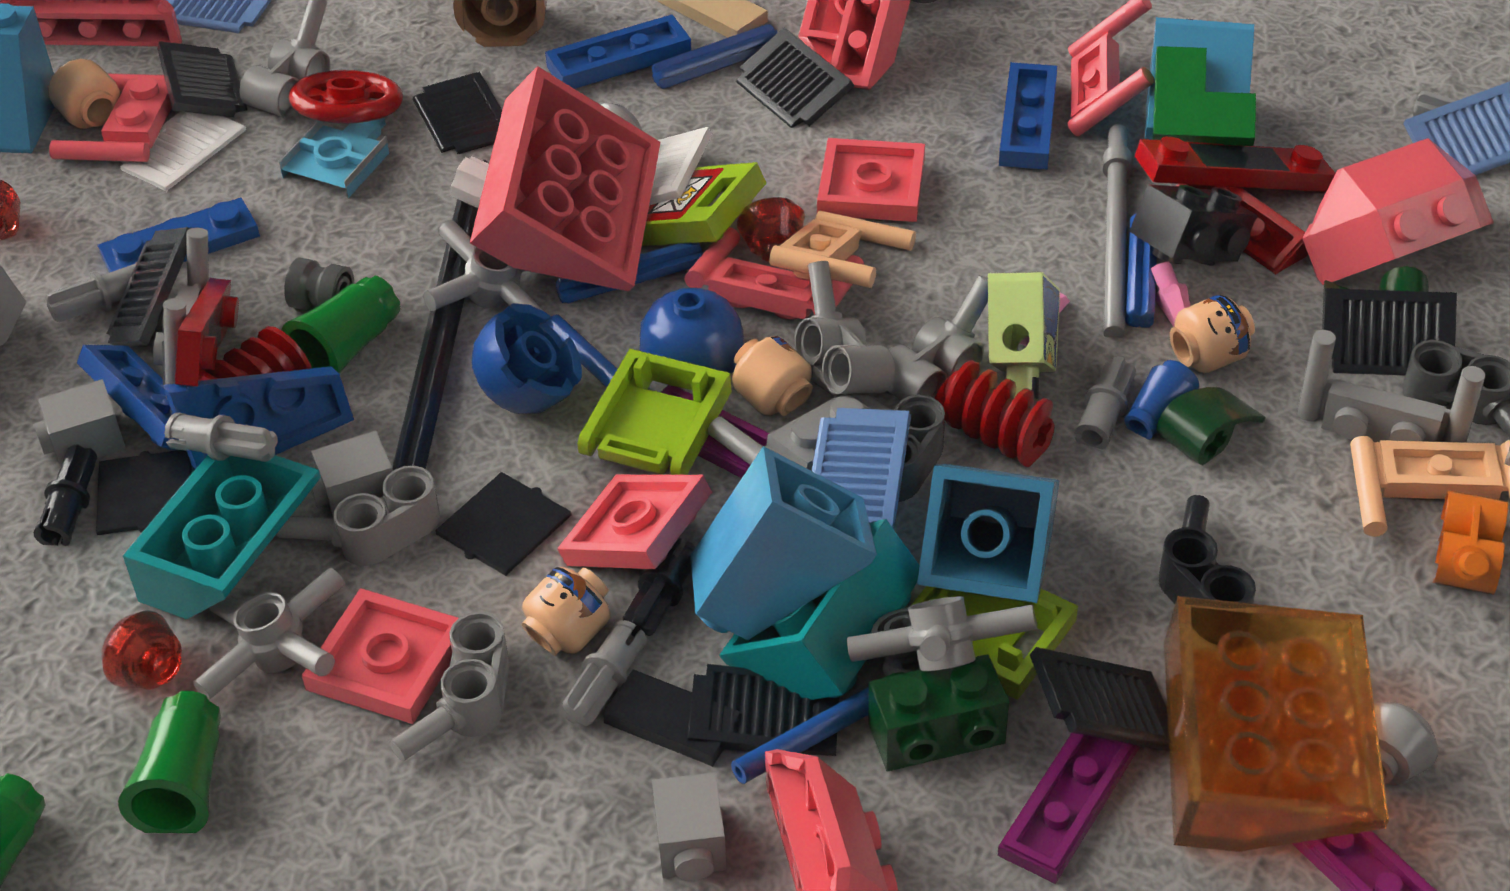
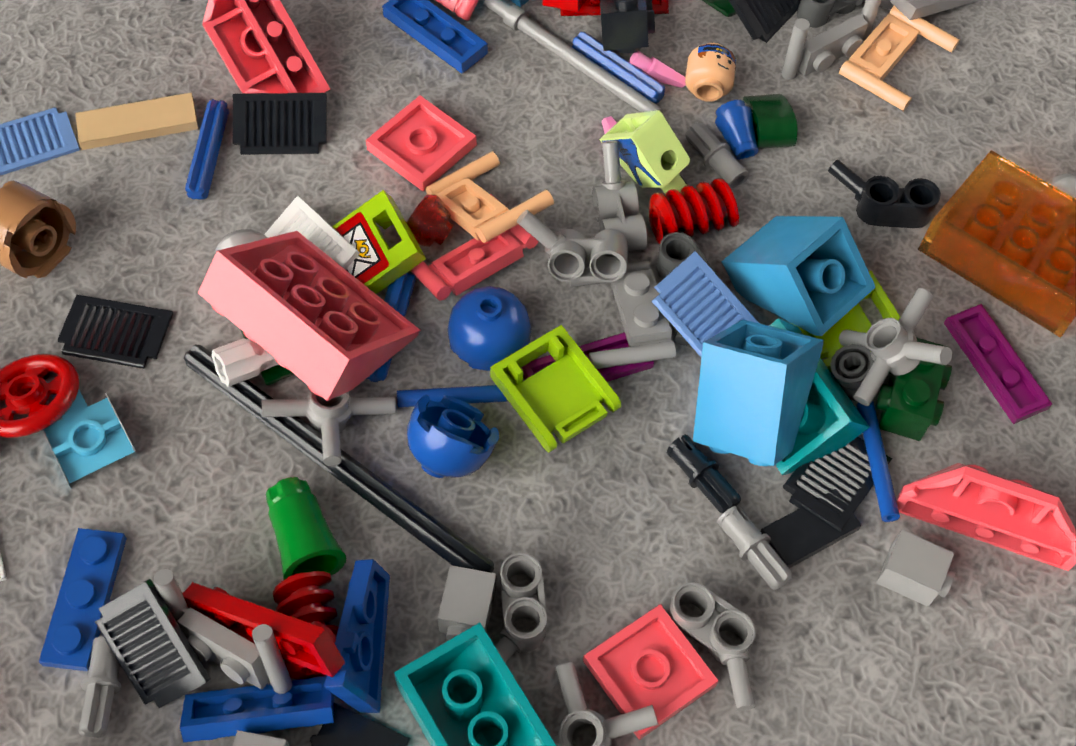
camera: 60 degrees left, 15 degrees up
(220, 437) = (409, 672): light grey axle -> none
(311, 285) = (241, 524): dark grey wheel -> none
(503, 523) = (567, 534): black piece -> none
(566, 610) = (691, 538): light nougat head -> none
(618, 52) = (149, 201): blue plate -> none
(635, 521) = (645, 455): coral plate -> none
(772, 376) = (567, 303): light nougat head -> none
(1103, 698) = (959, 303): black window -> none
(1471, 542) = (953, 83): orange beam -> none

